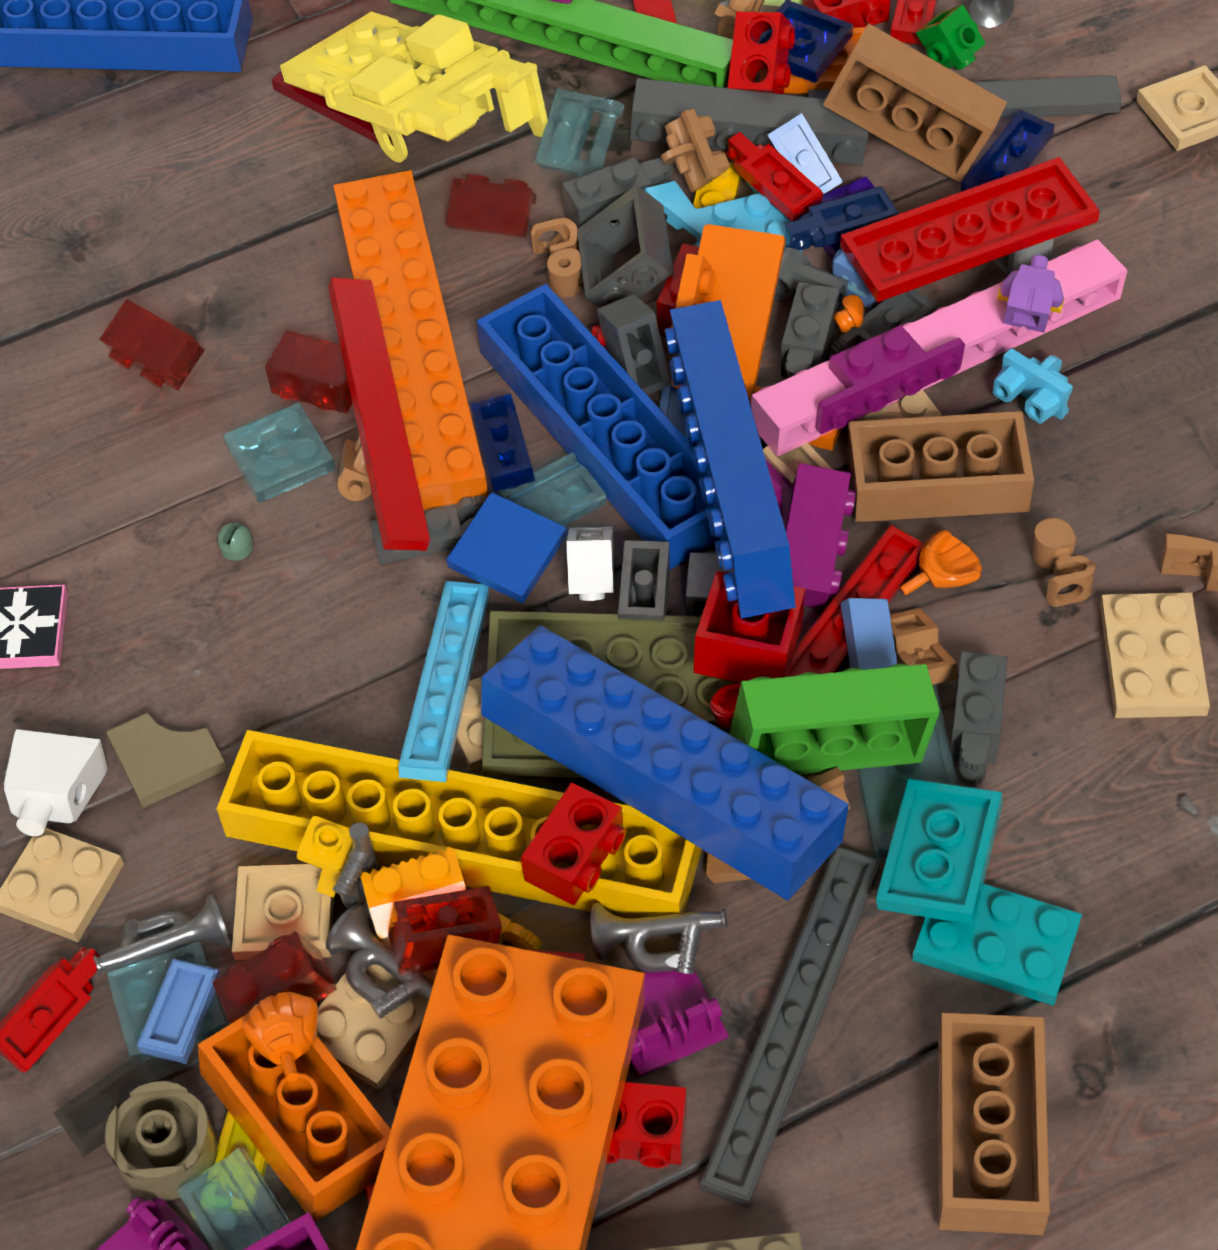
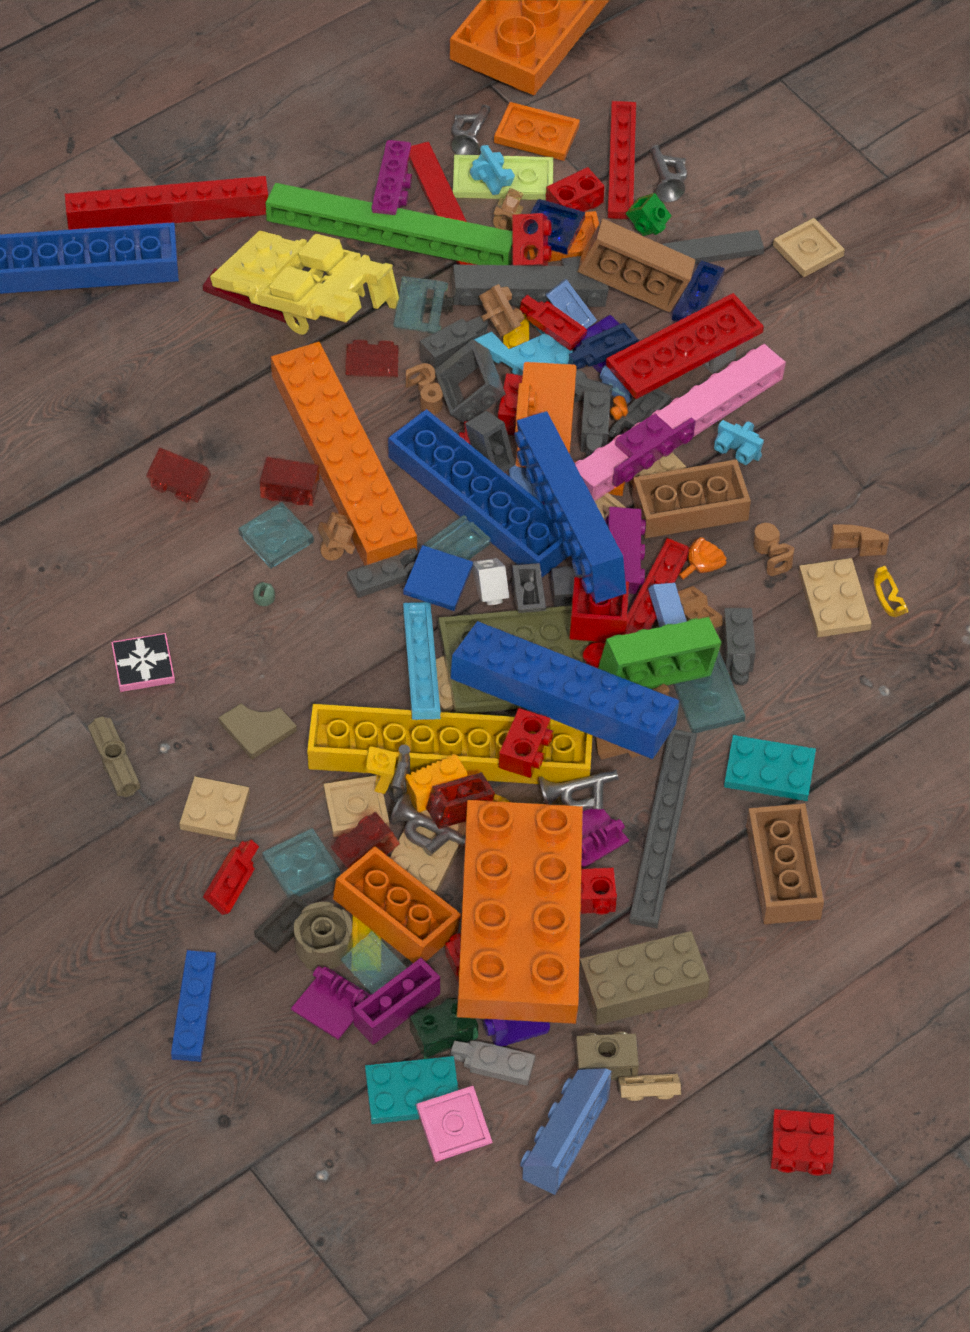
camera: 15 degrees left, 0 degrees up
(51, 778) = (195, 747): white torso -> none
(164, 933) = (292, 825): flat silver piece -> none
(178, 1011) = (313, 866): medium blue tile -> none
(283, 1029) = (382, 864): orange piece -> none
(378, 416) = (343, 503): red tile -> none
(502, 443) = (421, 513): clear blue plate -> none
(940, 851) = (731, 722): teal plate -> none
(1031, 295) = (730, 386): medium lavender piece -> none

